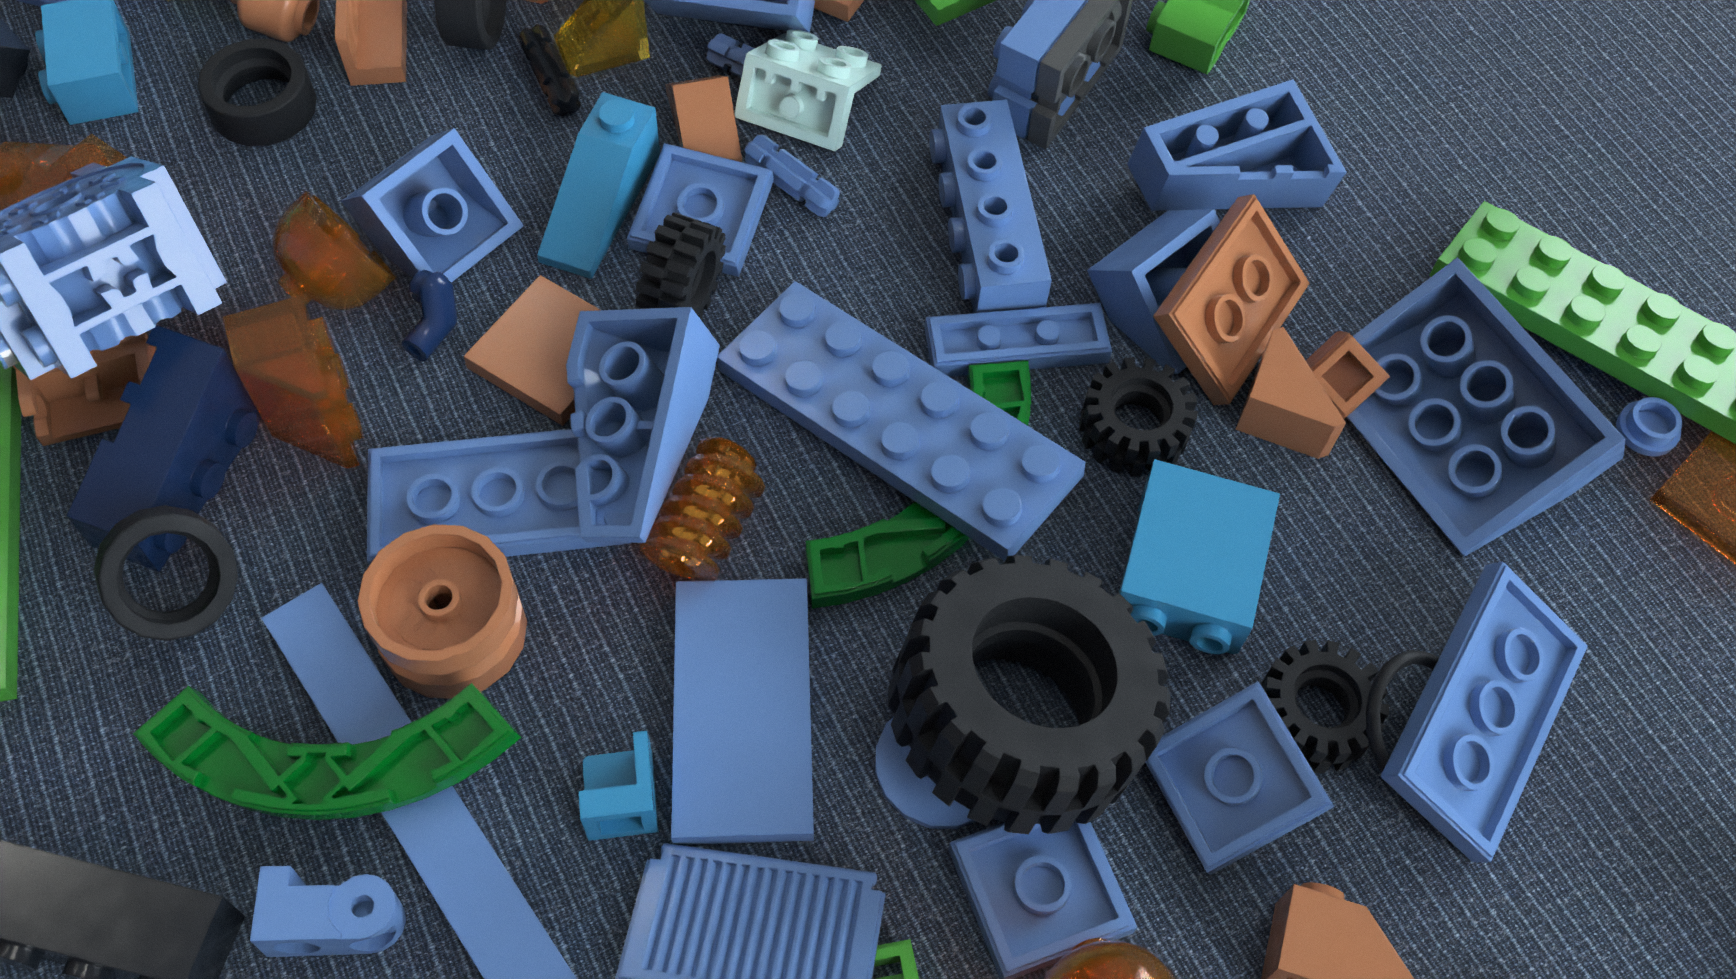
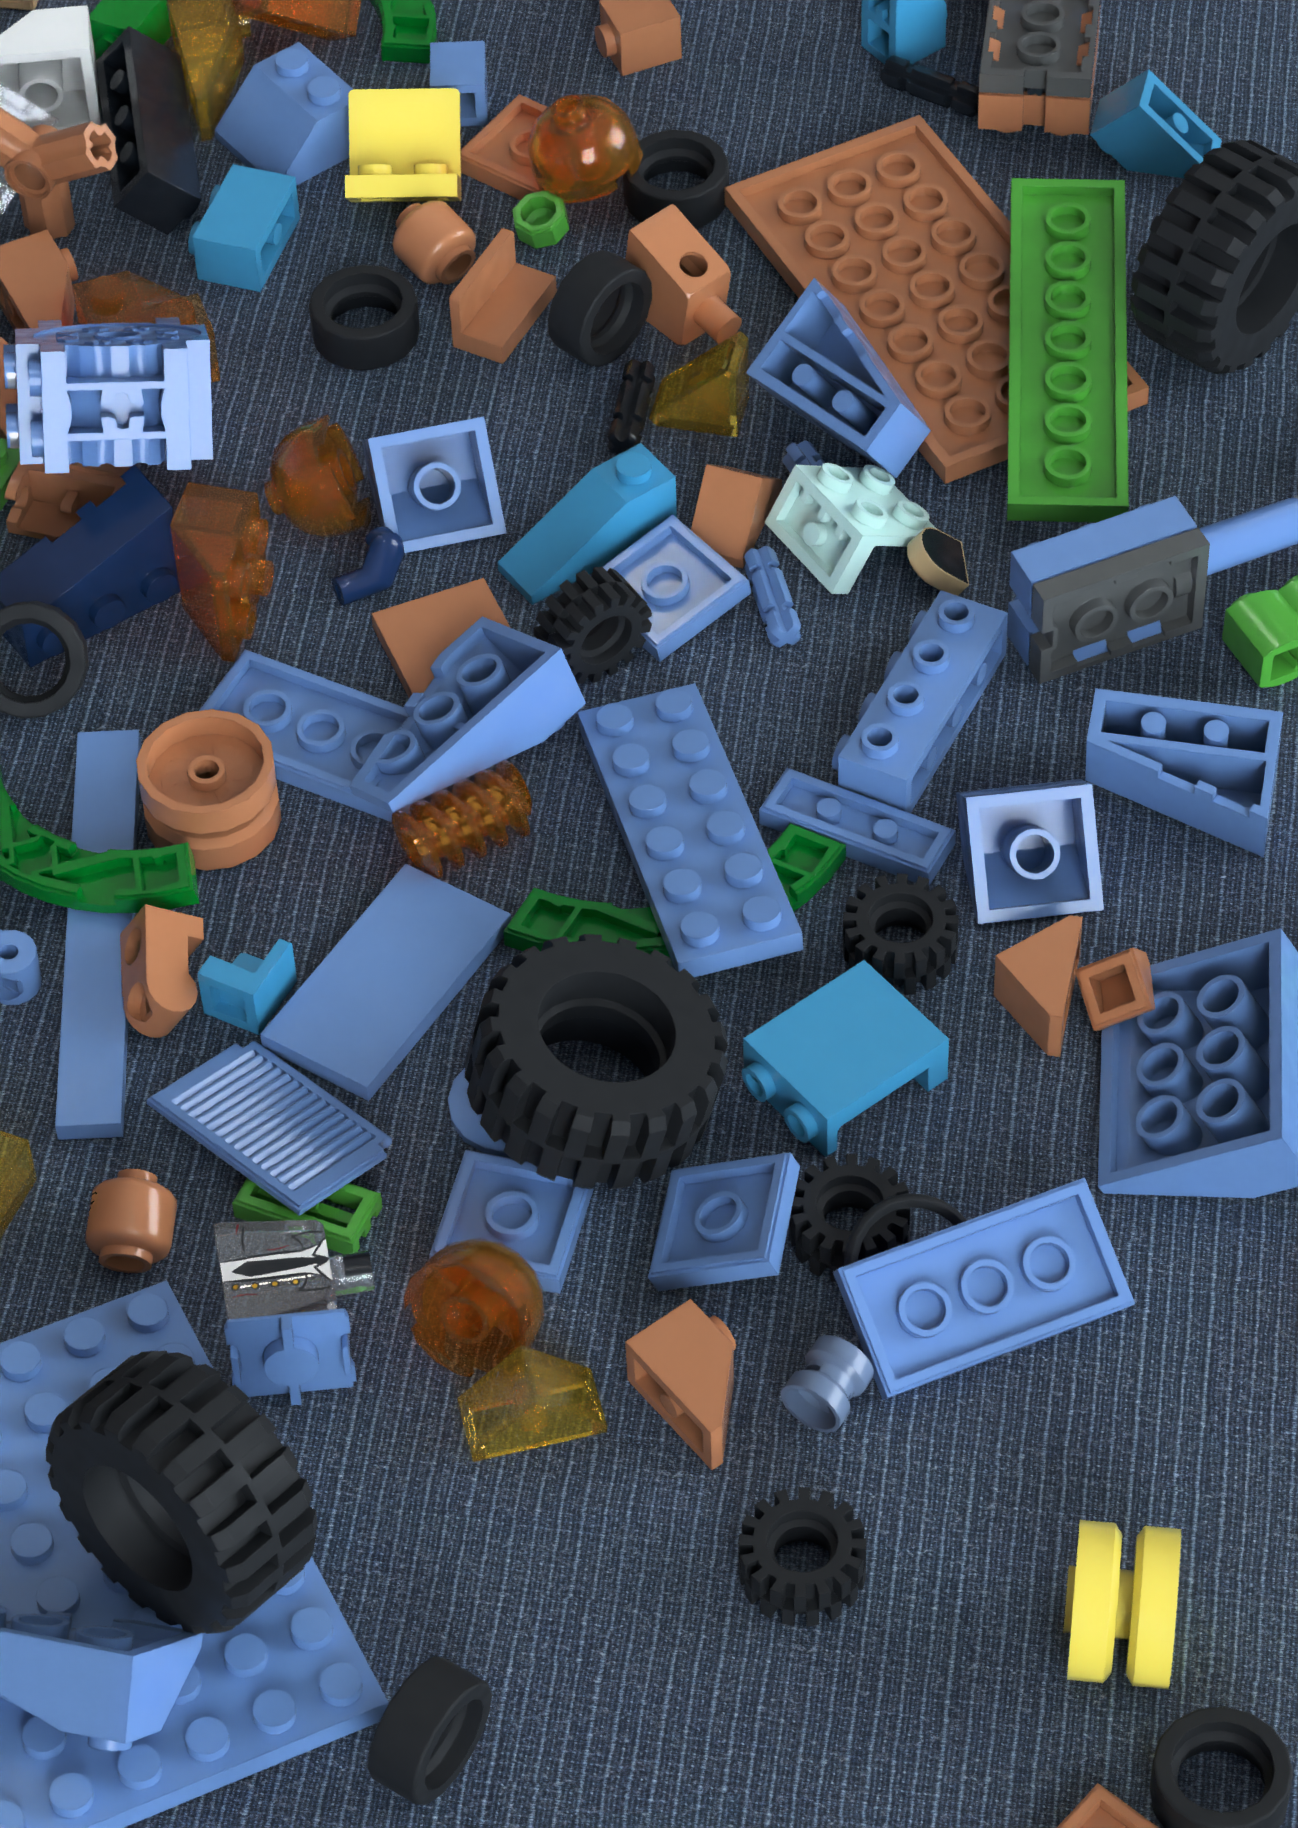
camera: 40 degrees right, 10 degrees down
(528, 832) = (156, 968): none -> nougat leg
(901, 85) = (939, 560): none -> tile
(1232, 300) = (1073, 862): nougat tile -> none
(1445, 884) = (831, 1378): none -> sand blue wheel

